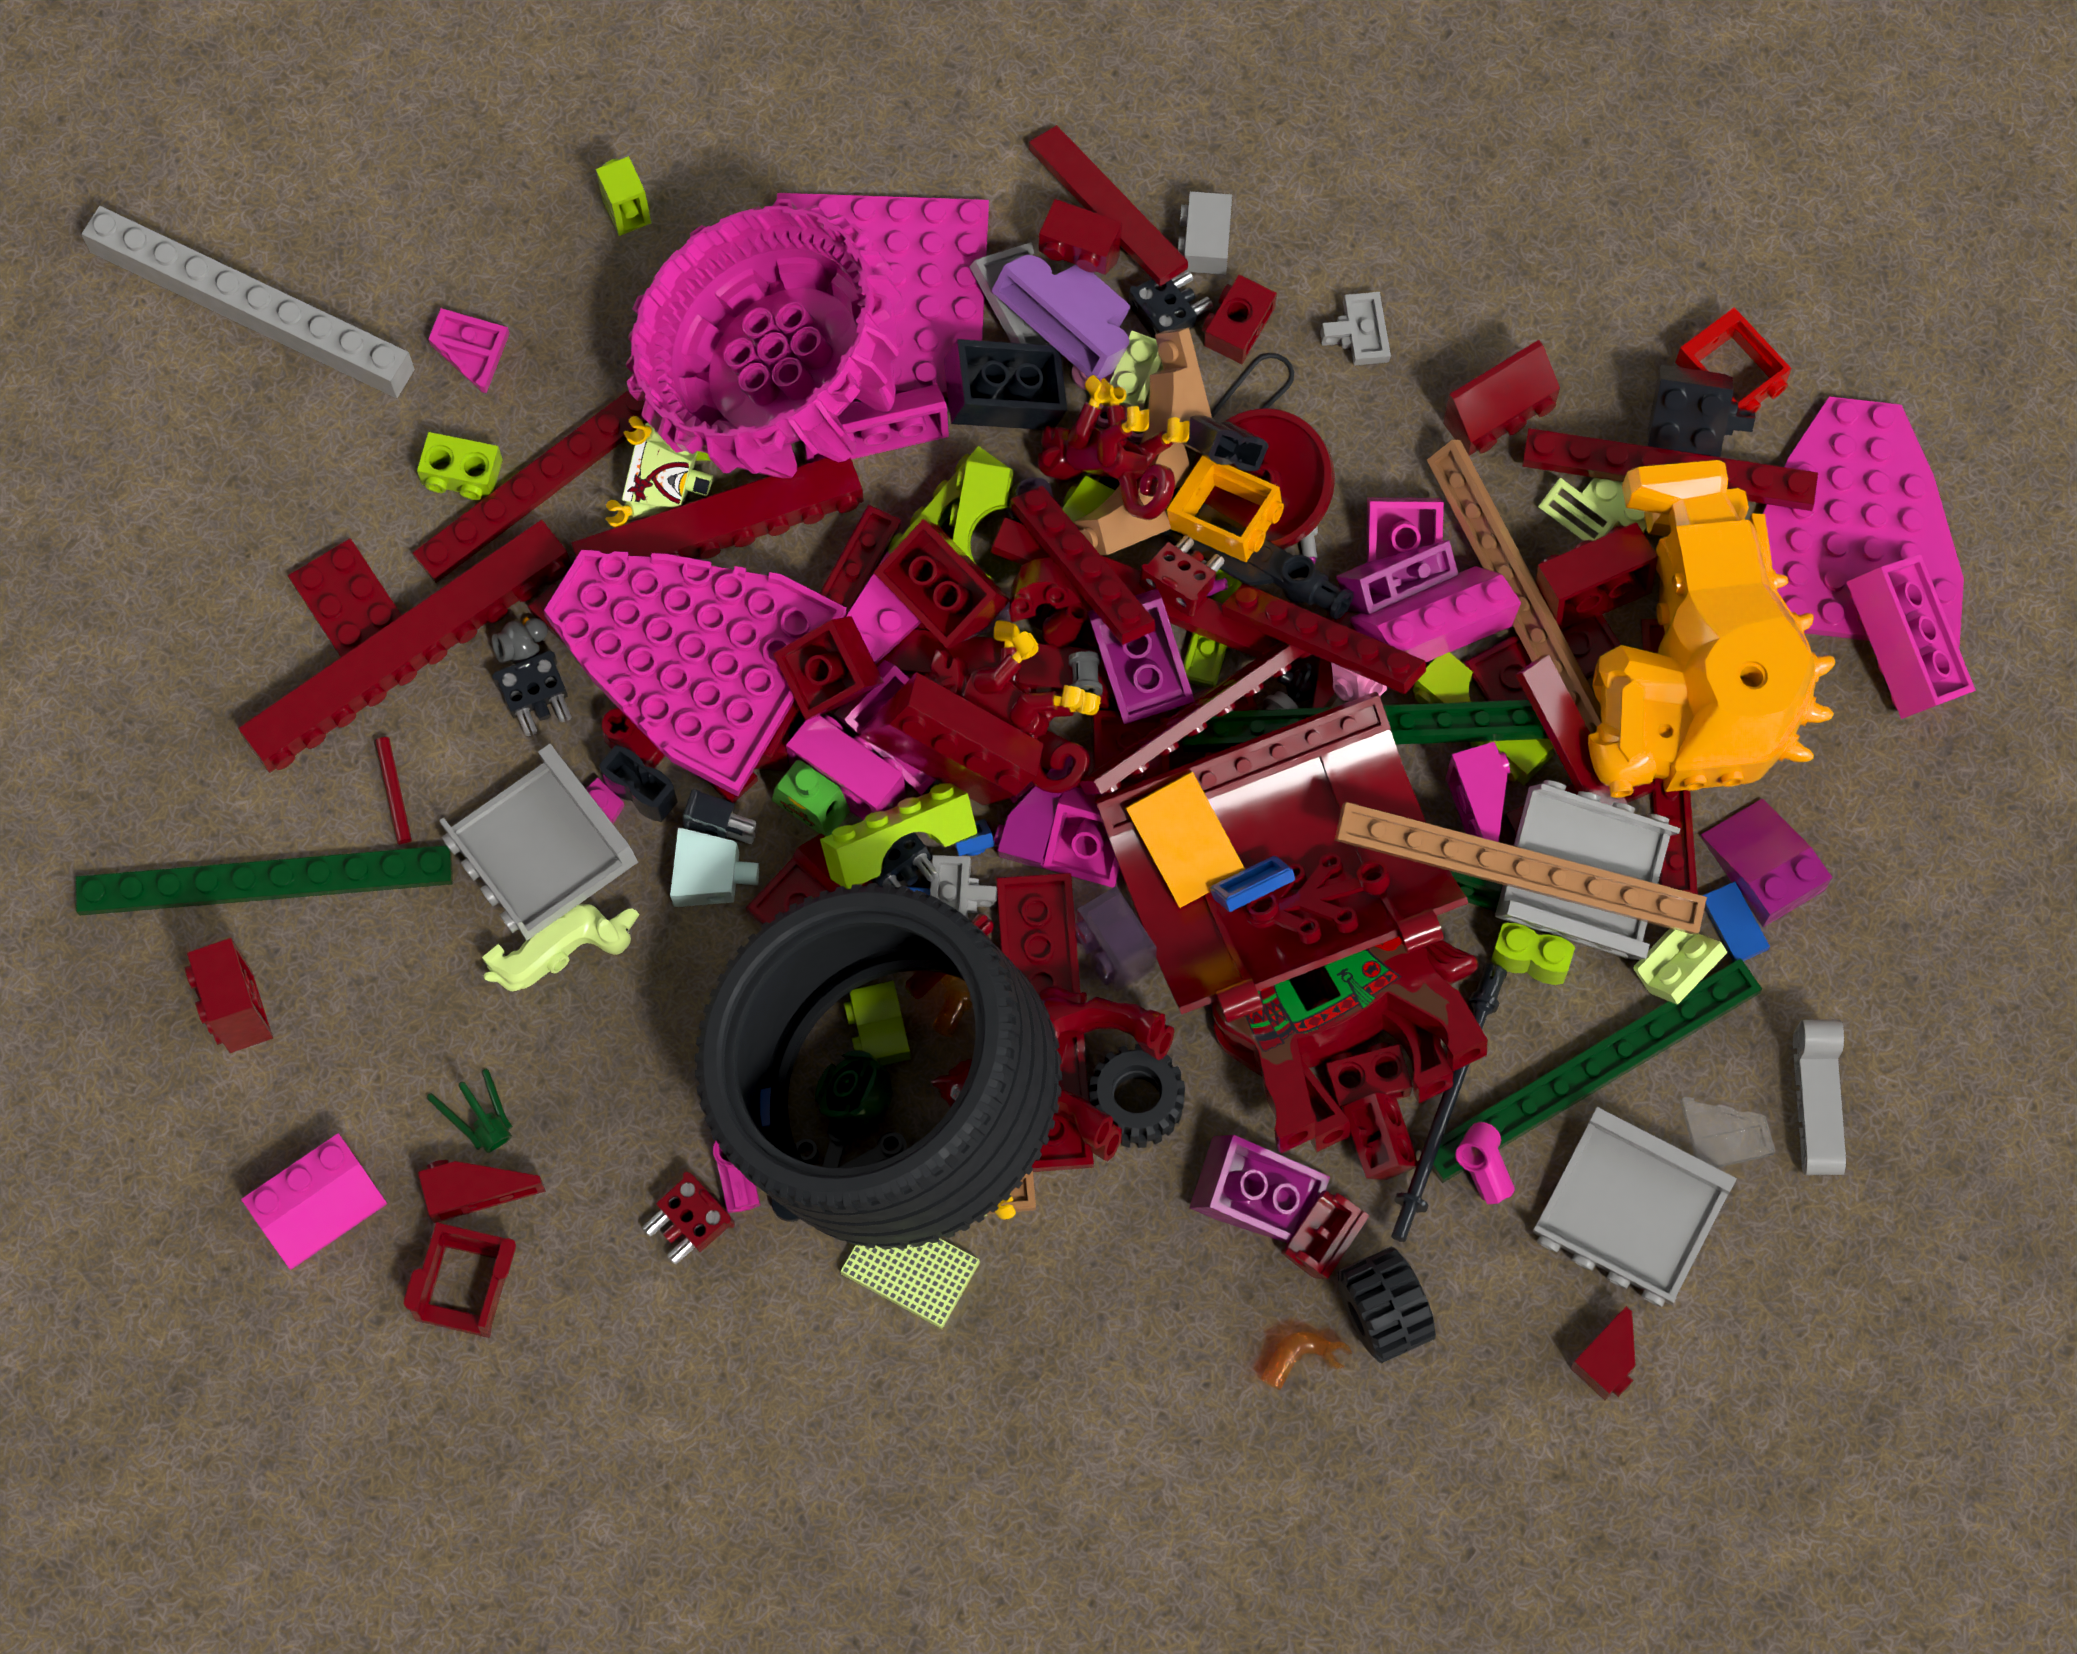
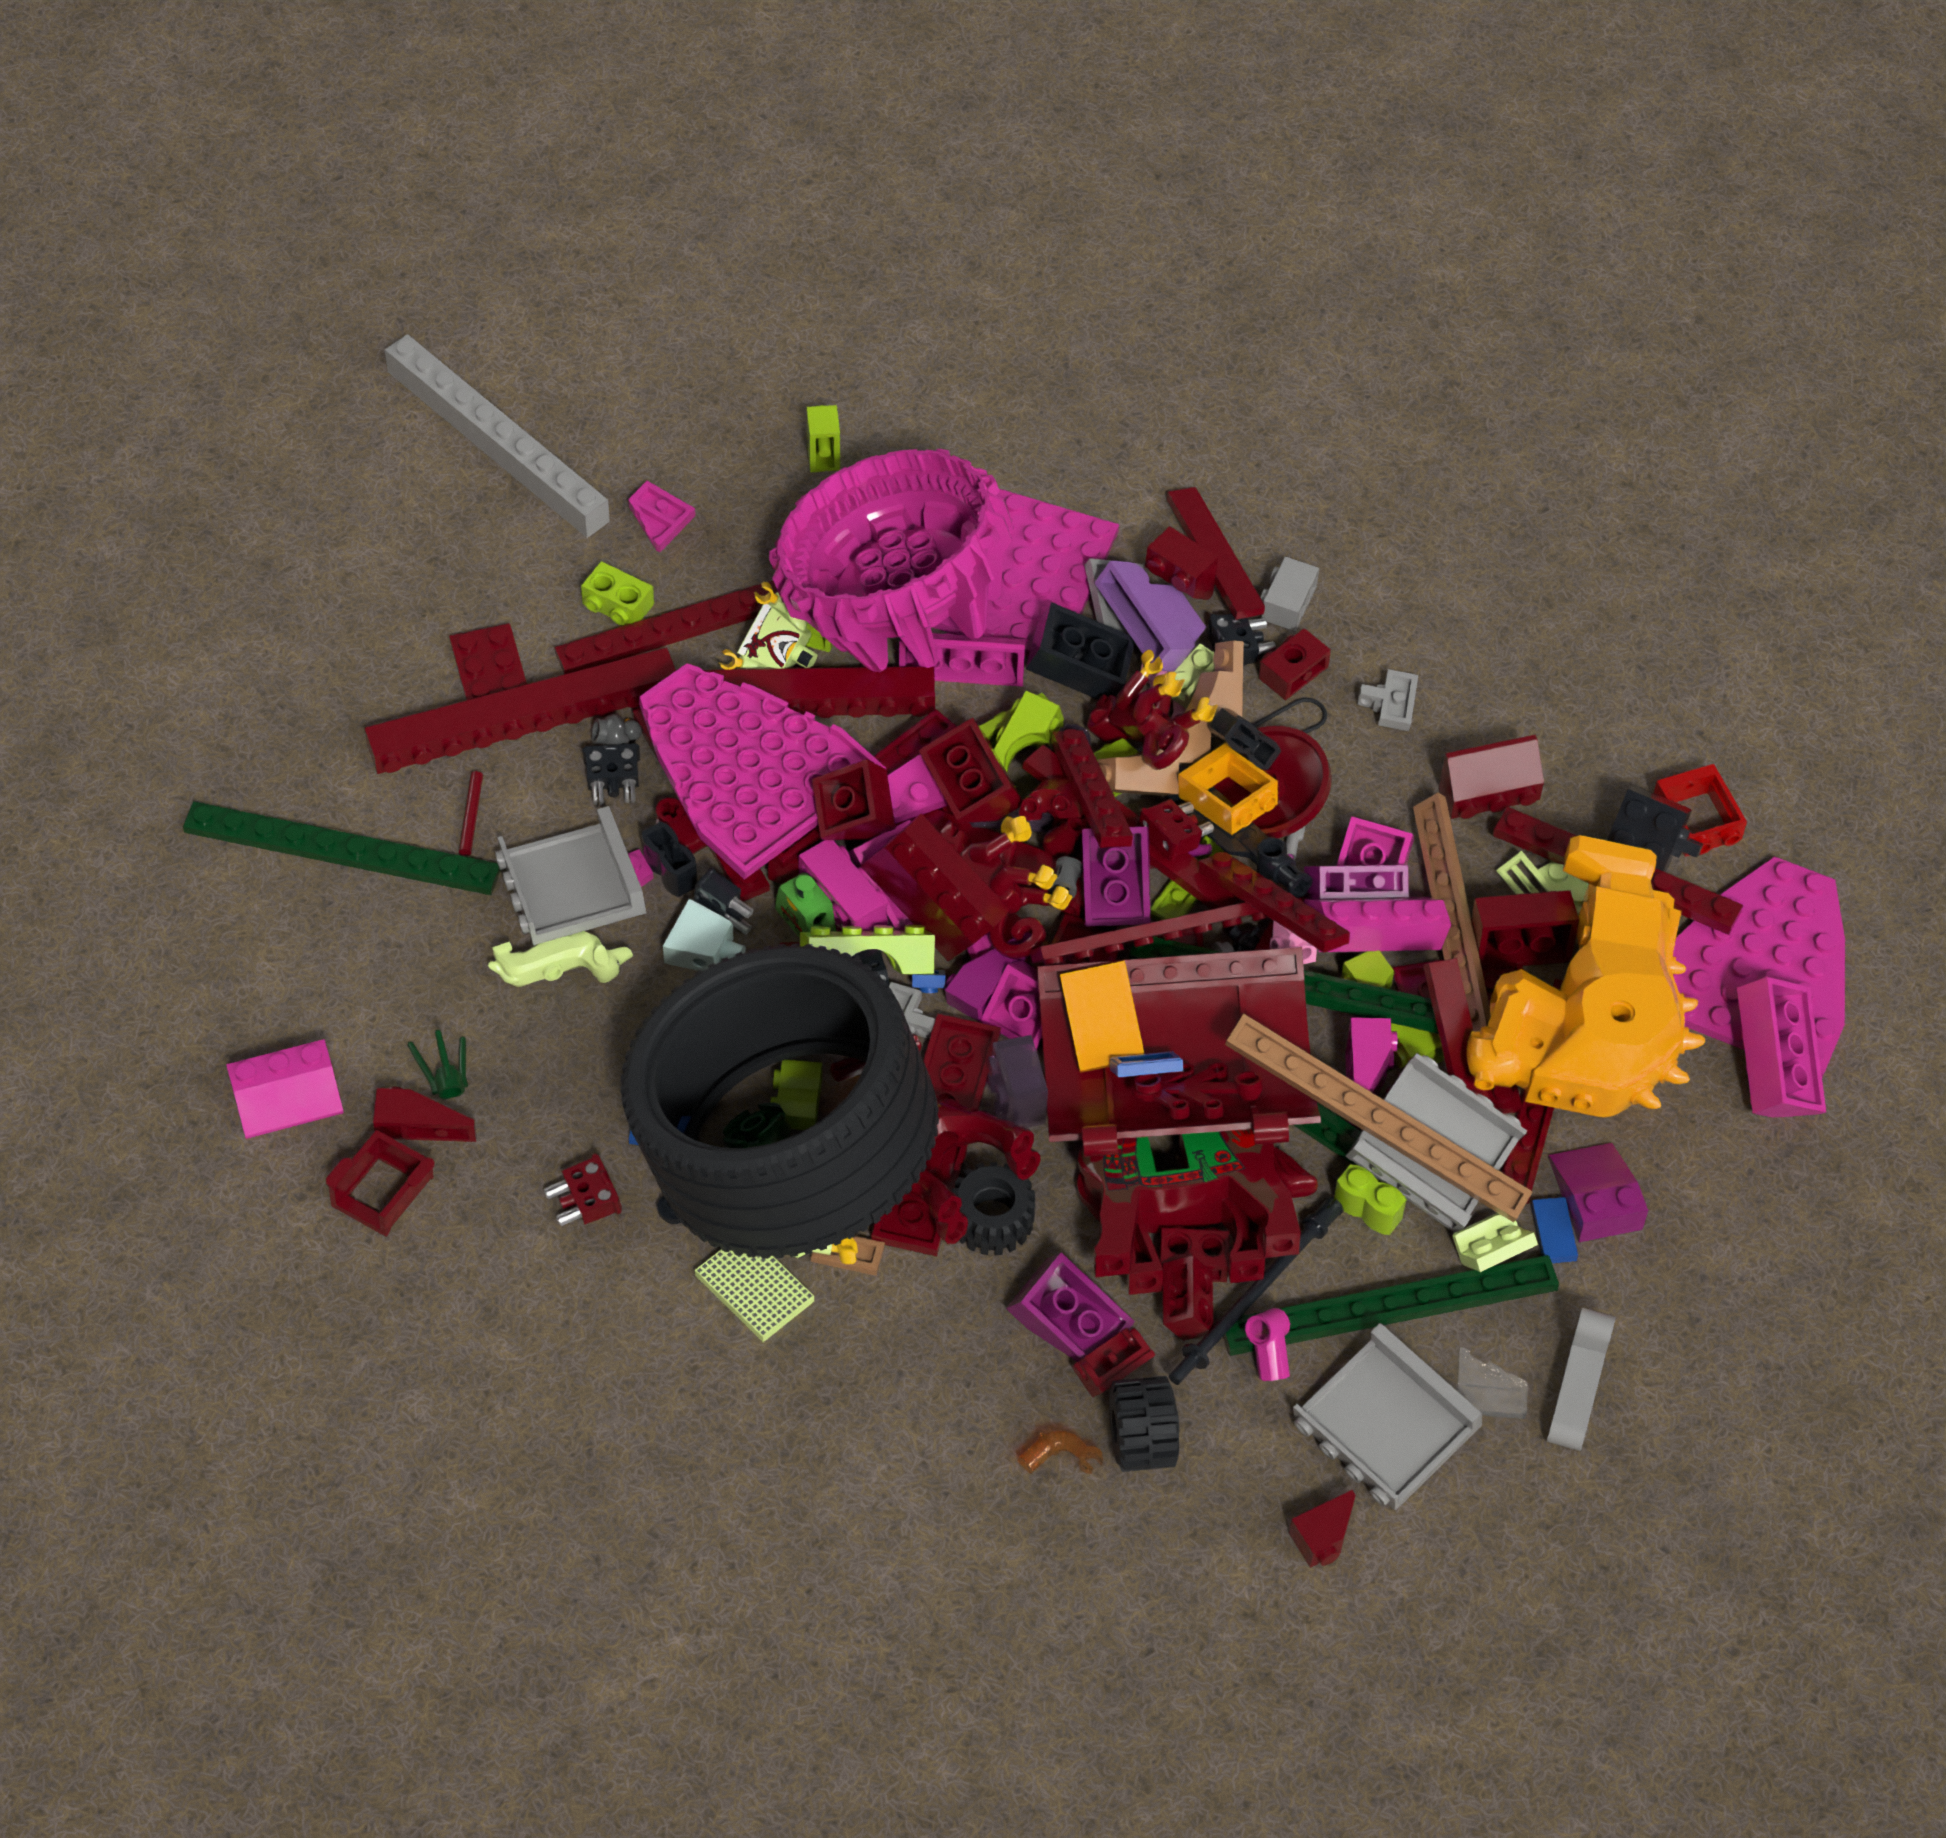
camera: 15 degrees right, 15 degrees down
(227, 996) = (276, 911): dark red brick -> none
(737, 1189) = (635, 1175): dark pink piece -> none

